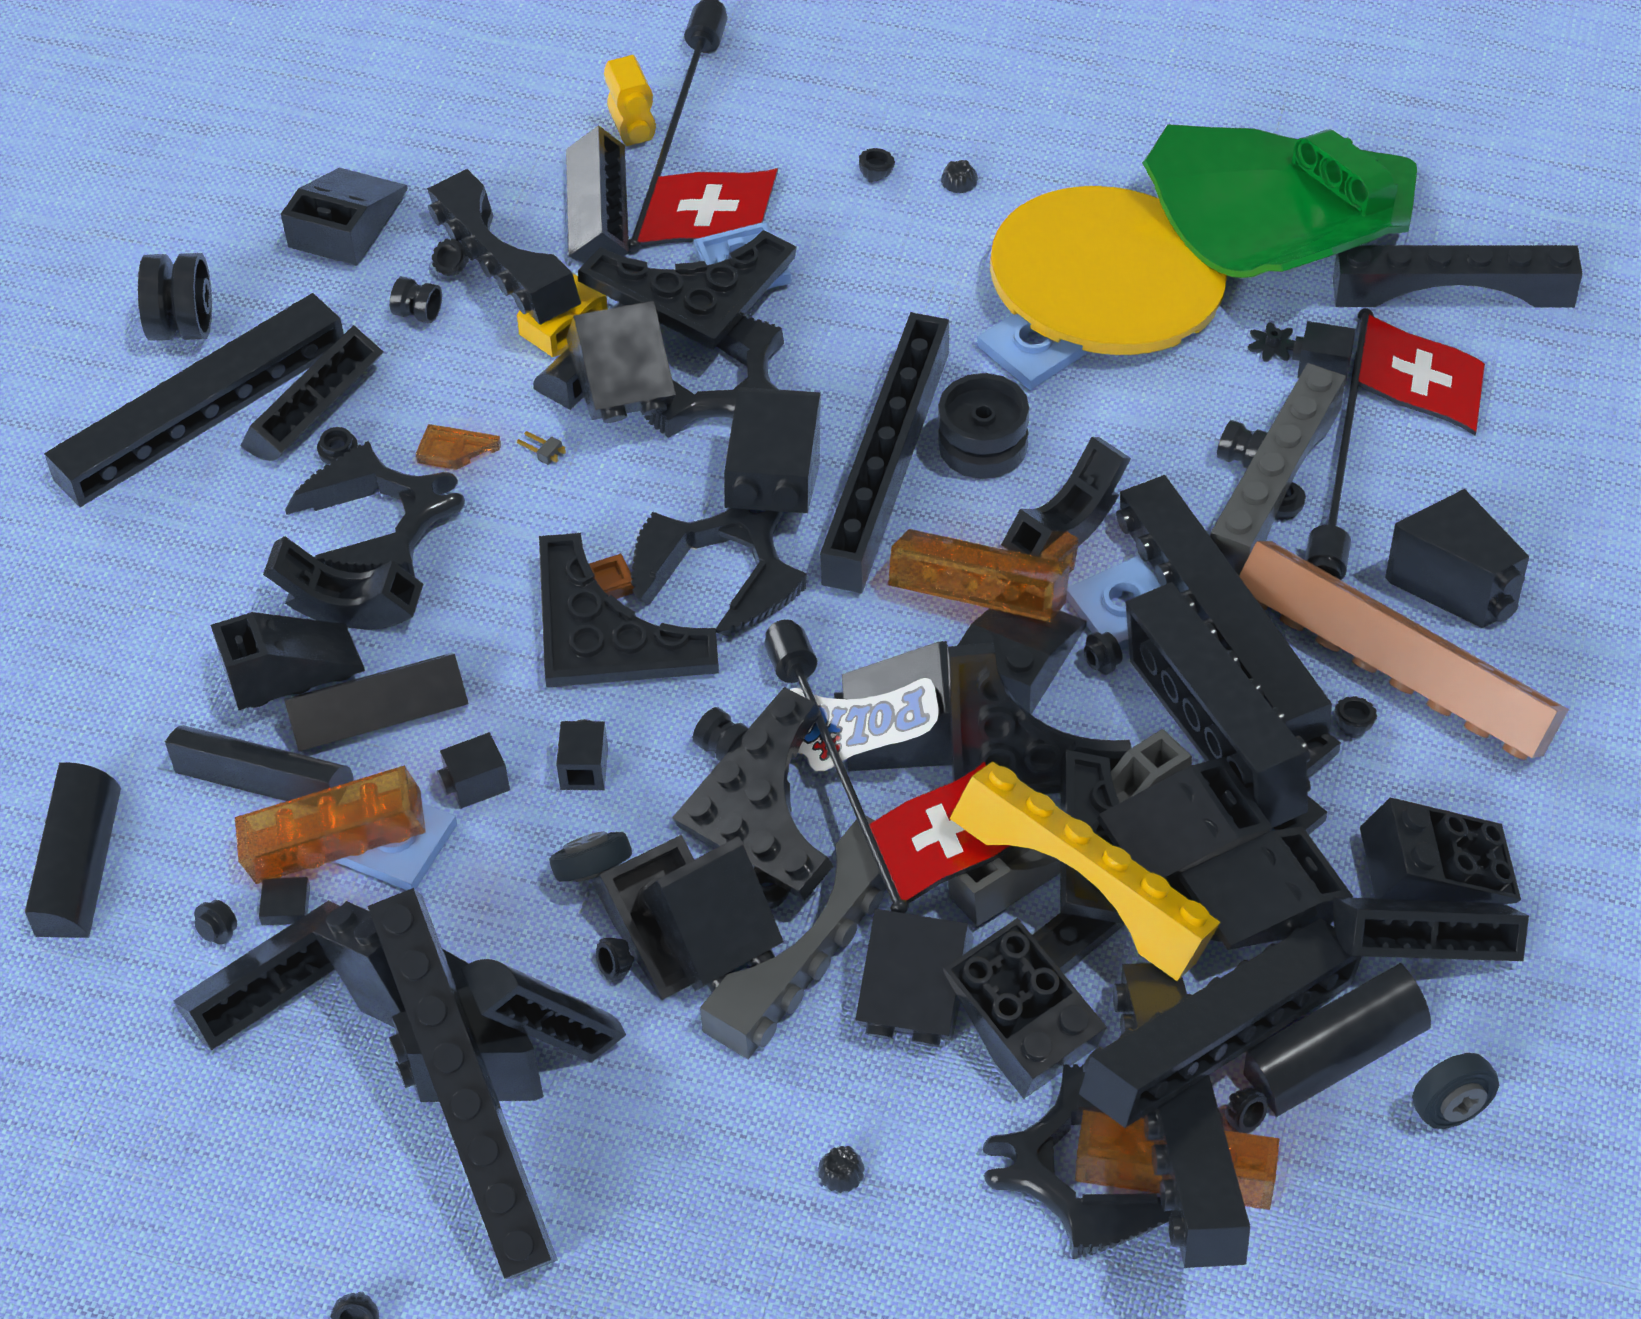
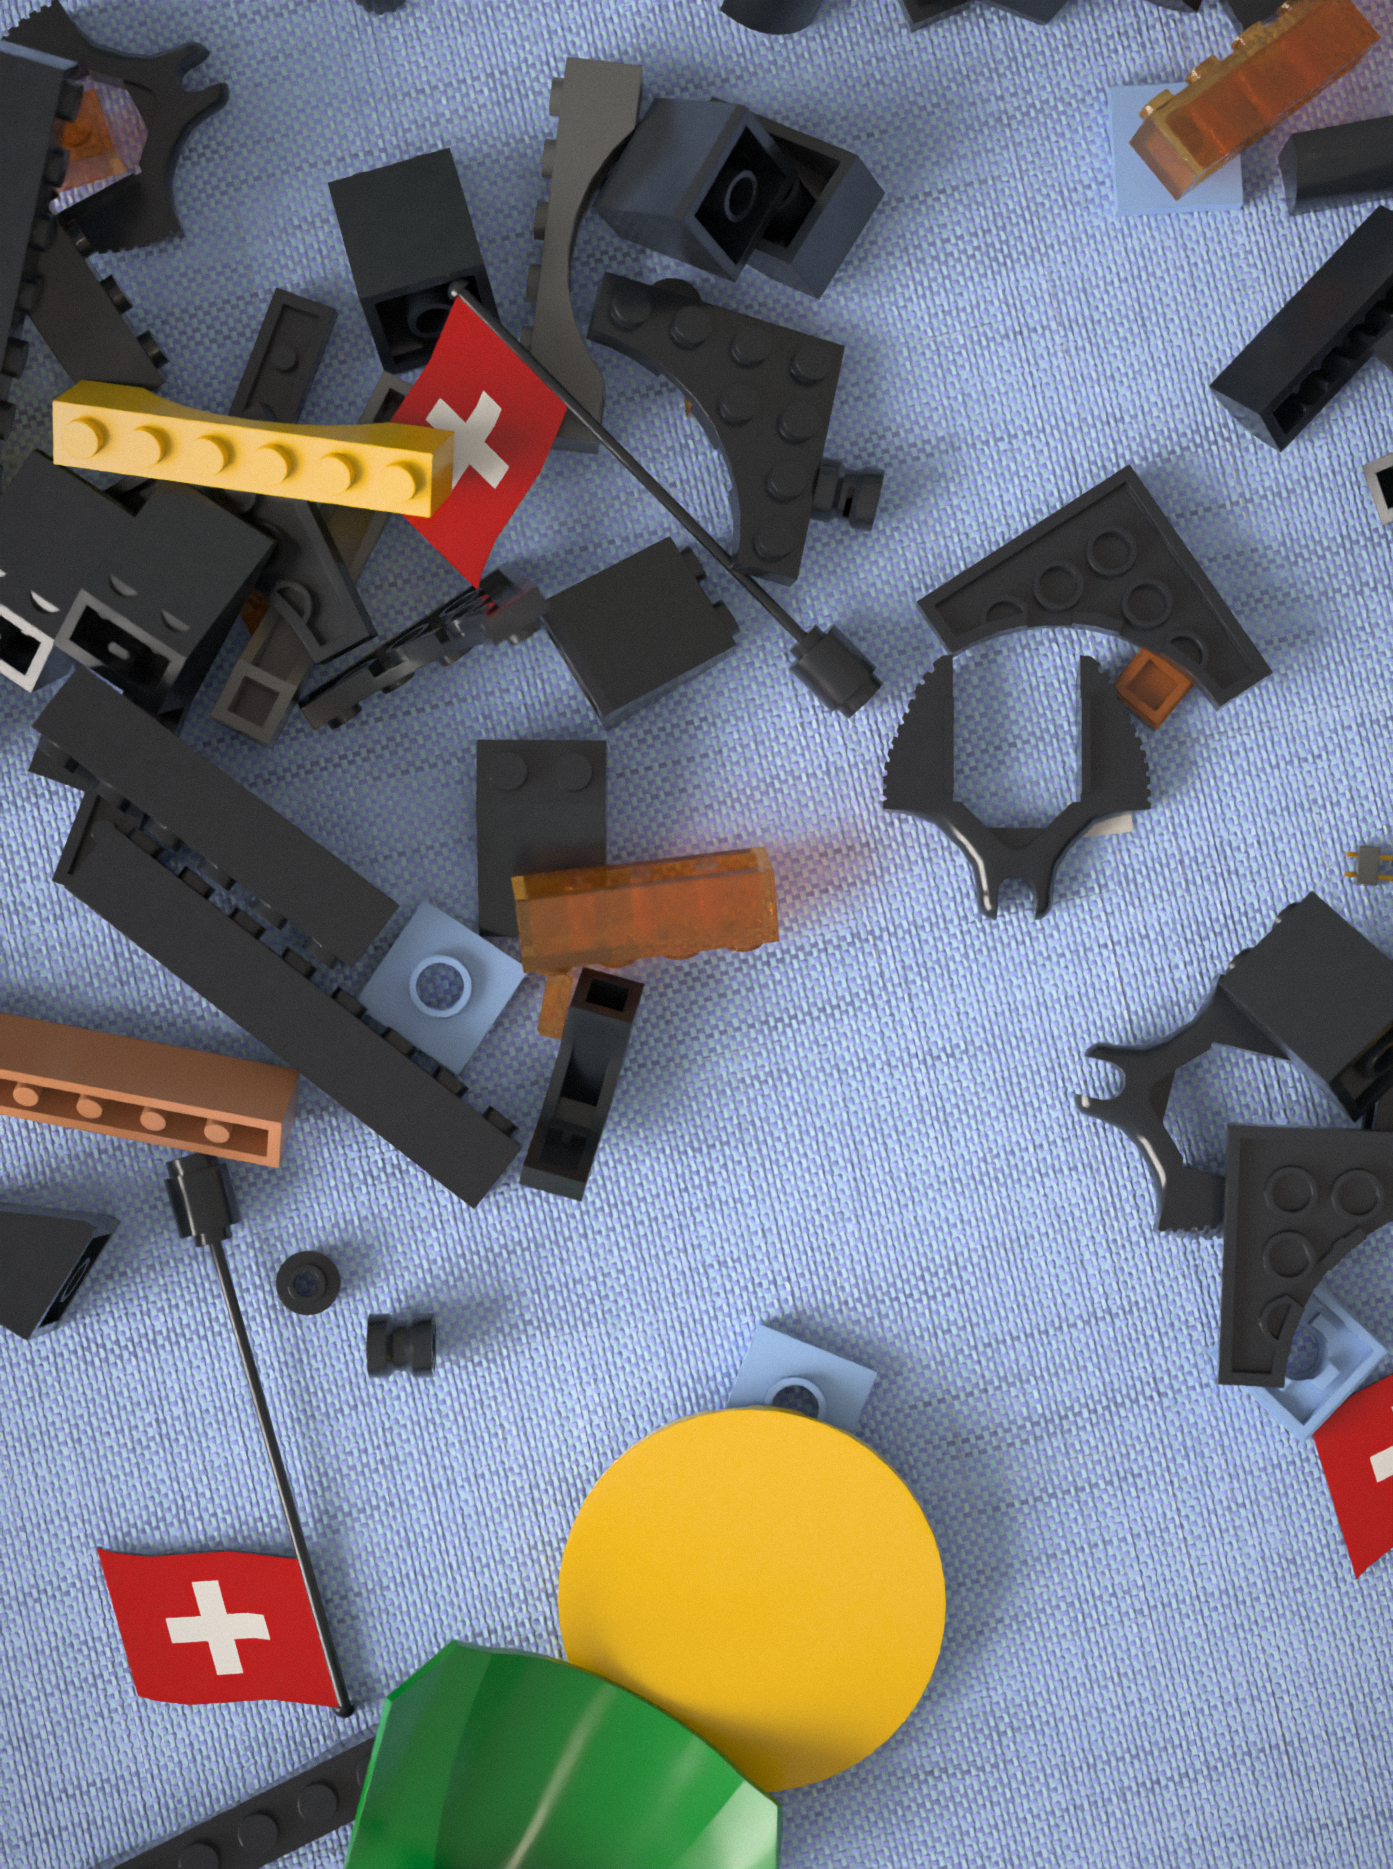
camera: 150 degrees right, 35 degrees up
(473, 770) = (1134, 280): black brick -> none
(582, 755) = (1011, 376): black brick -> none
(590, 856) = (903, 216): black wheel -> none
(614, 958) = (797, 111): black piece -> none
(773, 450) = (1030, 964): black slope -> none
(871, 722) = (658, 569): sticker -> none
(876, 164) = (1211, 1659): black piece -> none
(885, 454) = (886, 1074): black brick -> none
(959, 176) = (1074, 1699): black piece -> none
(983, 425) = (810, 1198): black wheel -> none
(1023, 1007) = (248, 256): black slope -> none
(1102, 652) = (427, 880): black plate -> none
(1272, 342) = (464, 1577): black plant -> none
(1297, 428) = (331, 1322): dark grey arch -> none
(1325, 347) = (364, 1585): black brick -> none
(1355, 715) = (55, 946): black piece -> none

